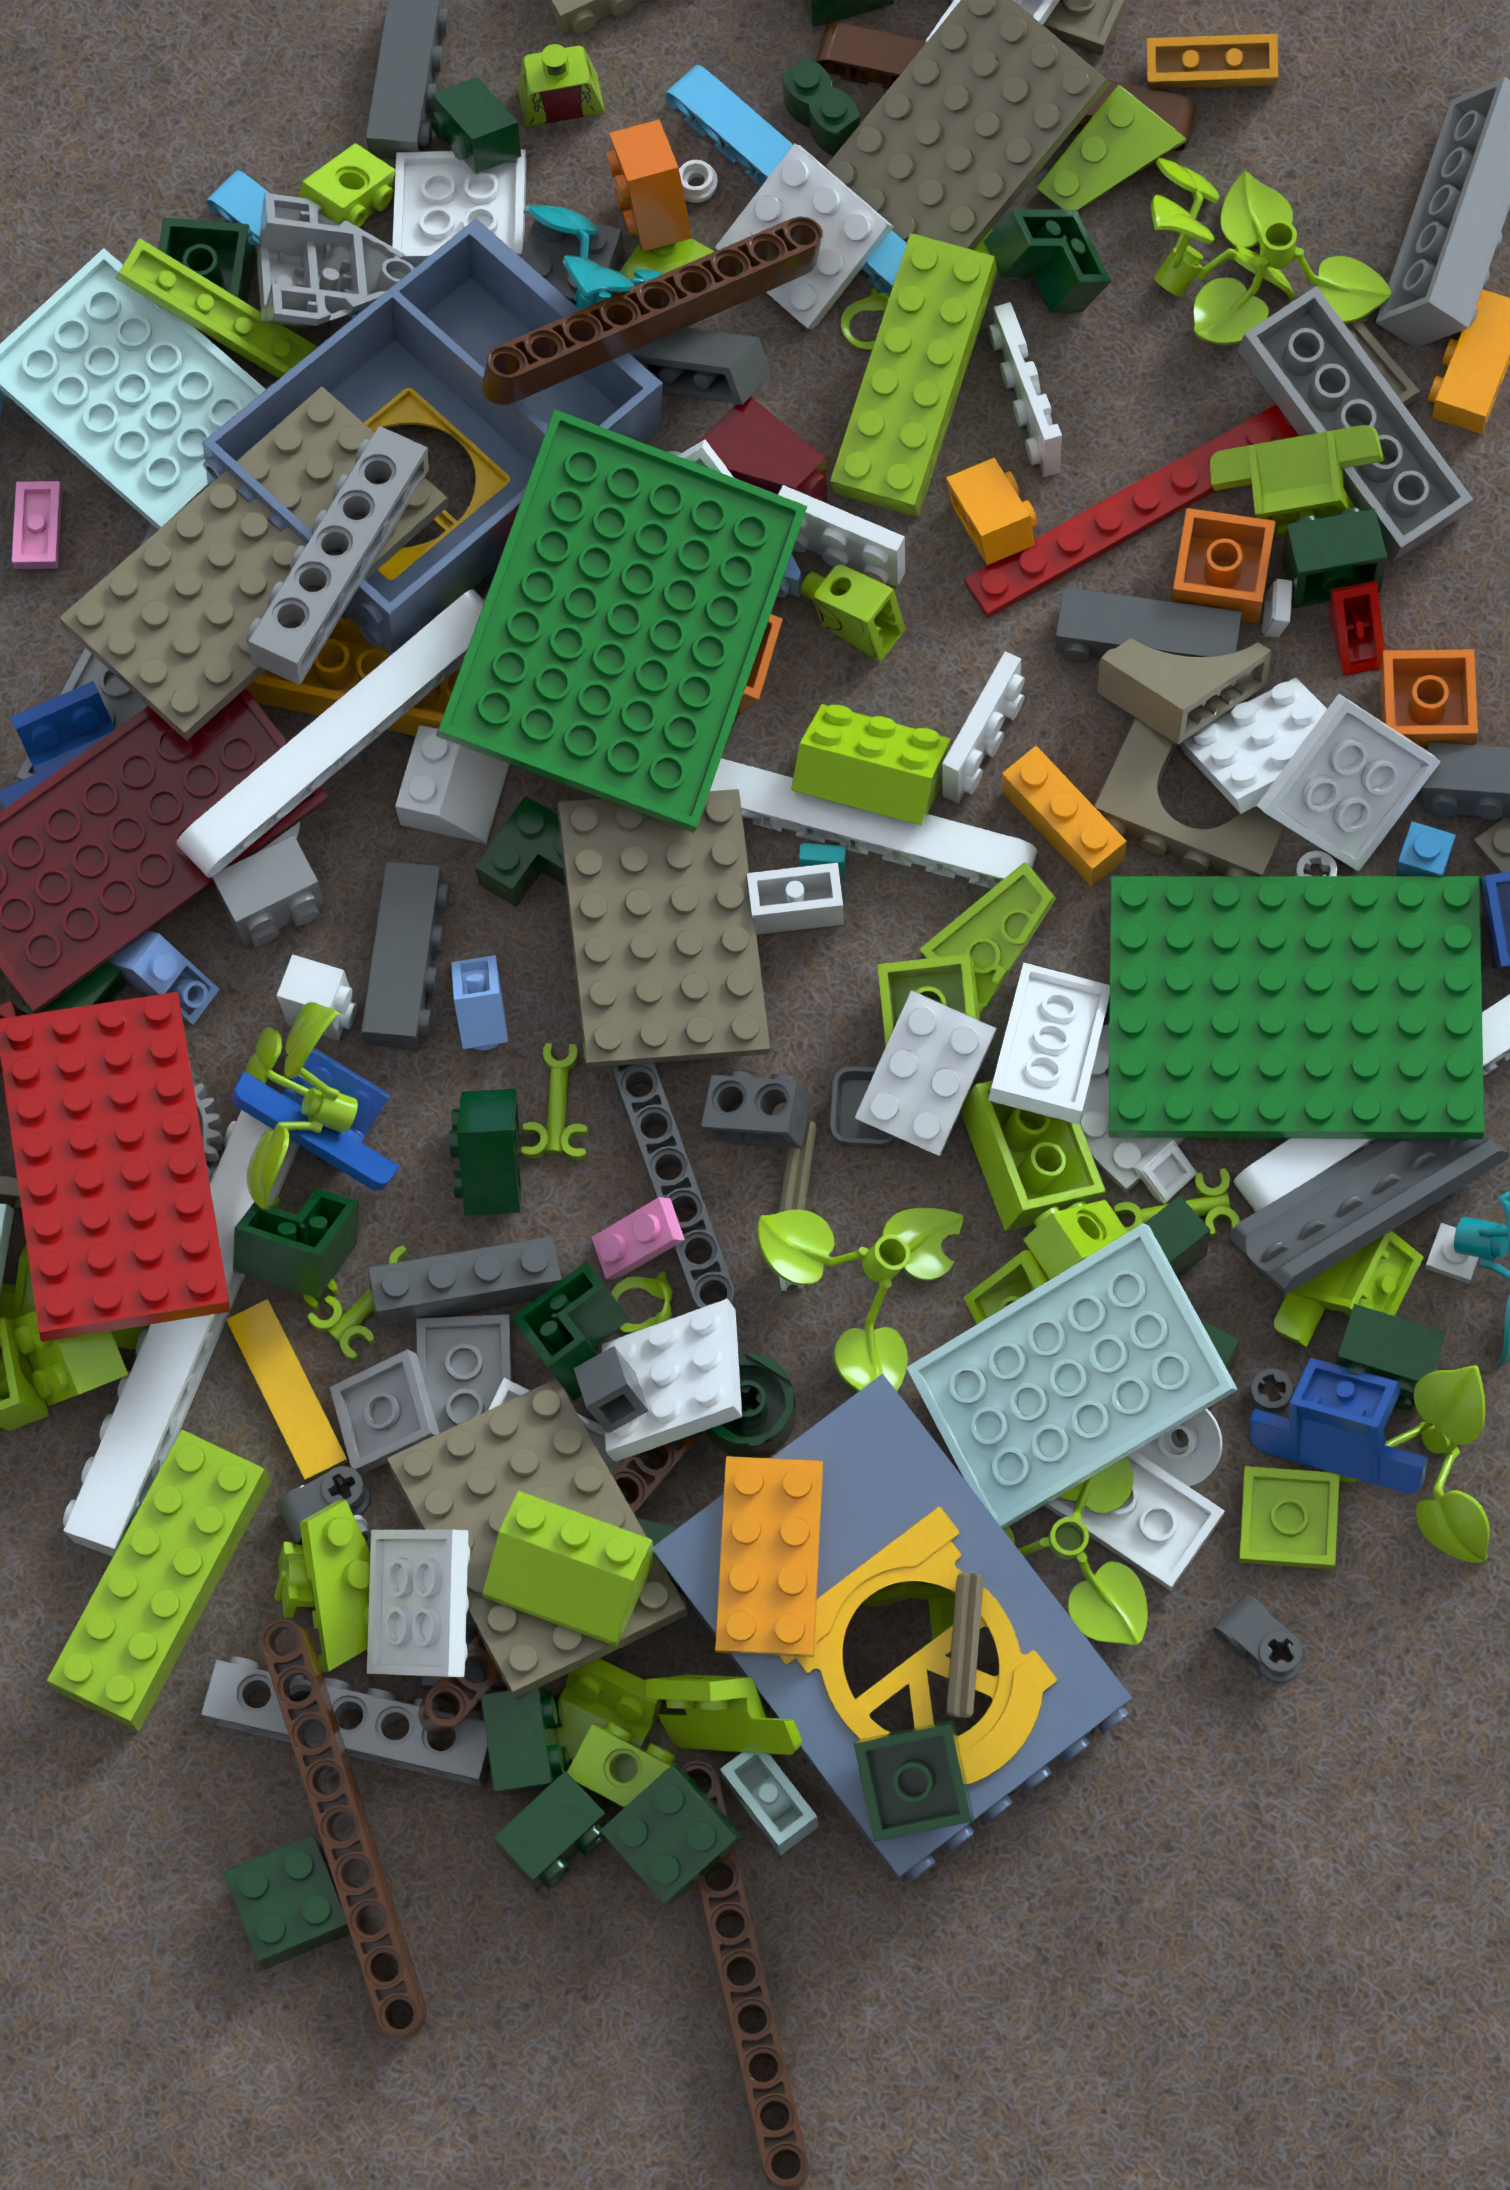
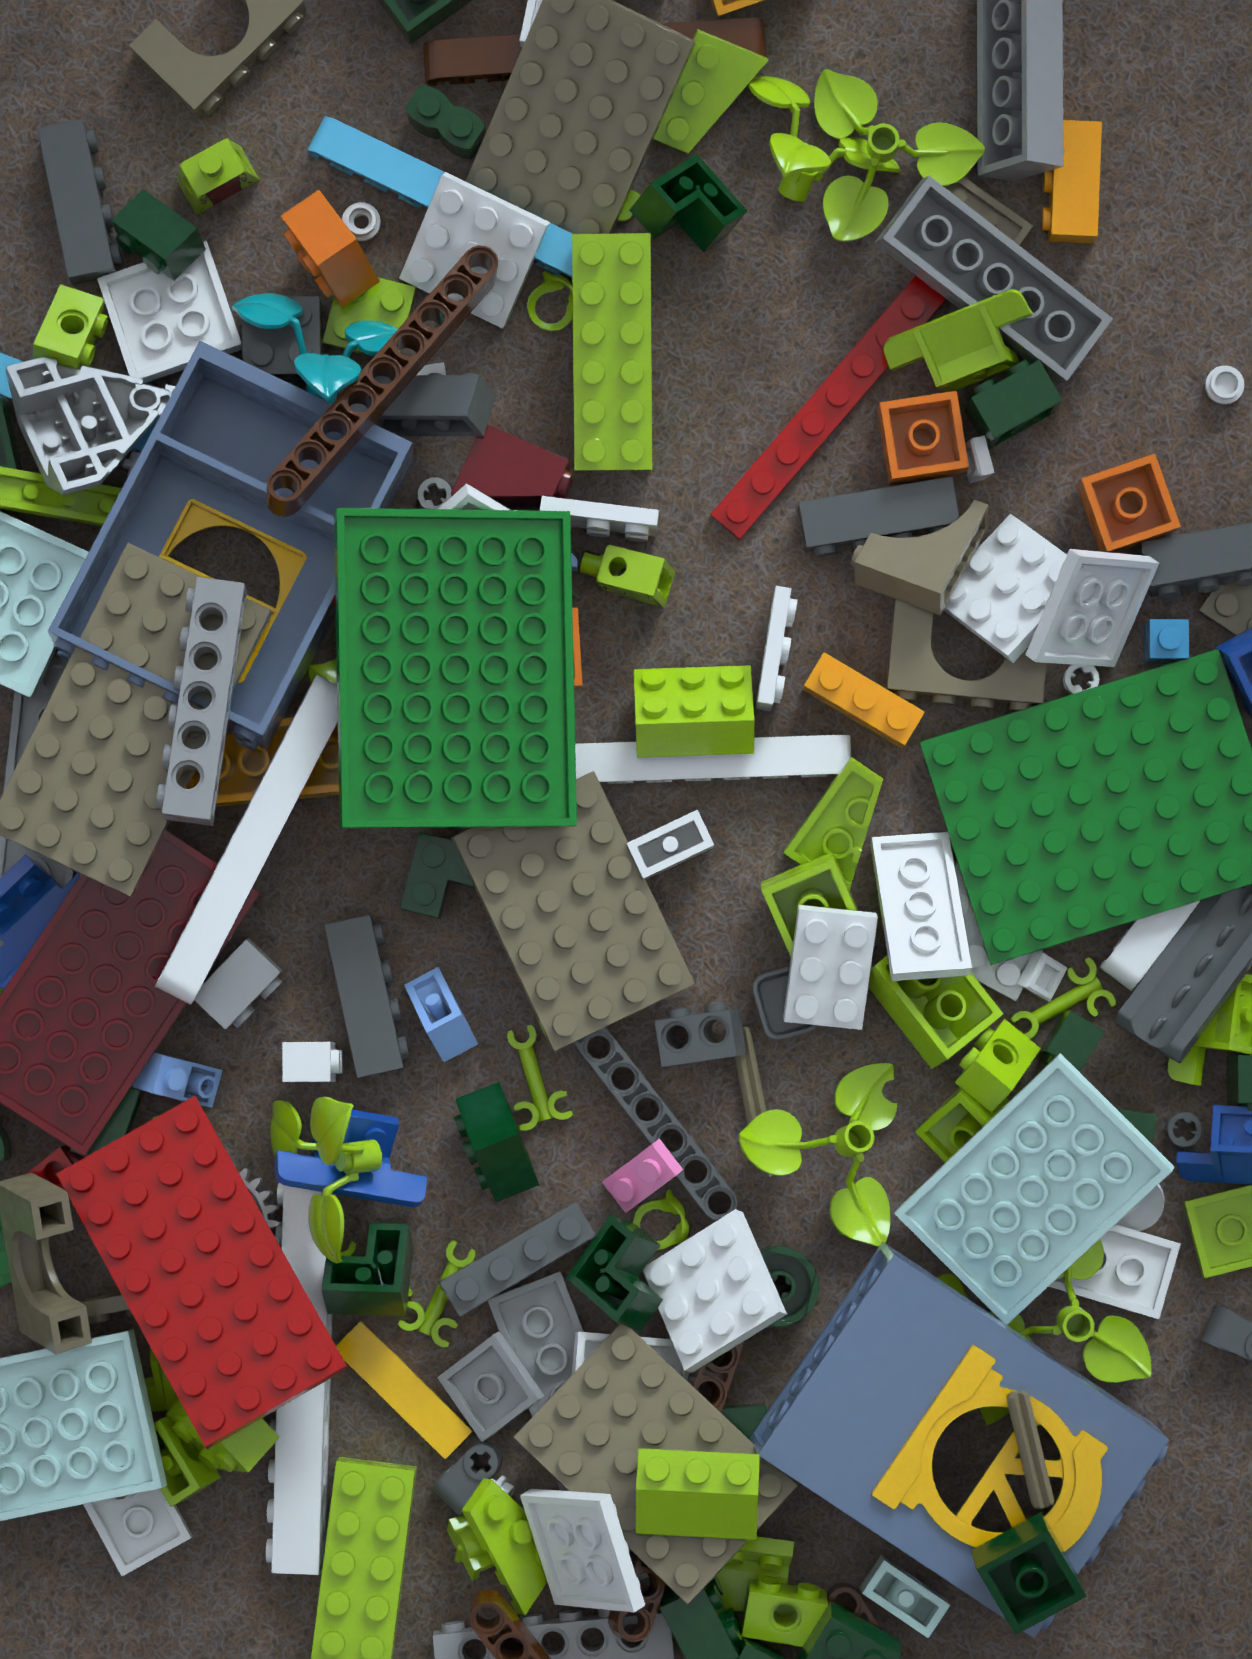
camera: 25 degrees left, 15 degrees up
(450, 788) = (347, 850): white slope -> none
(610, 1389) = (672, 1322): dark grey brick -> none
(721, 1715) = (850, 1552): lime plate -> none
(769, 1556) = (854, 1432): light orange plate -> none
(823, 854) = (679, 801): teal tile -> none
(992, 511) = (715, 450): light orange brick -> none
(1031, 407) = (673, 283): white wing -> none
(1357, 627) = (1049, 457): red slope -> none

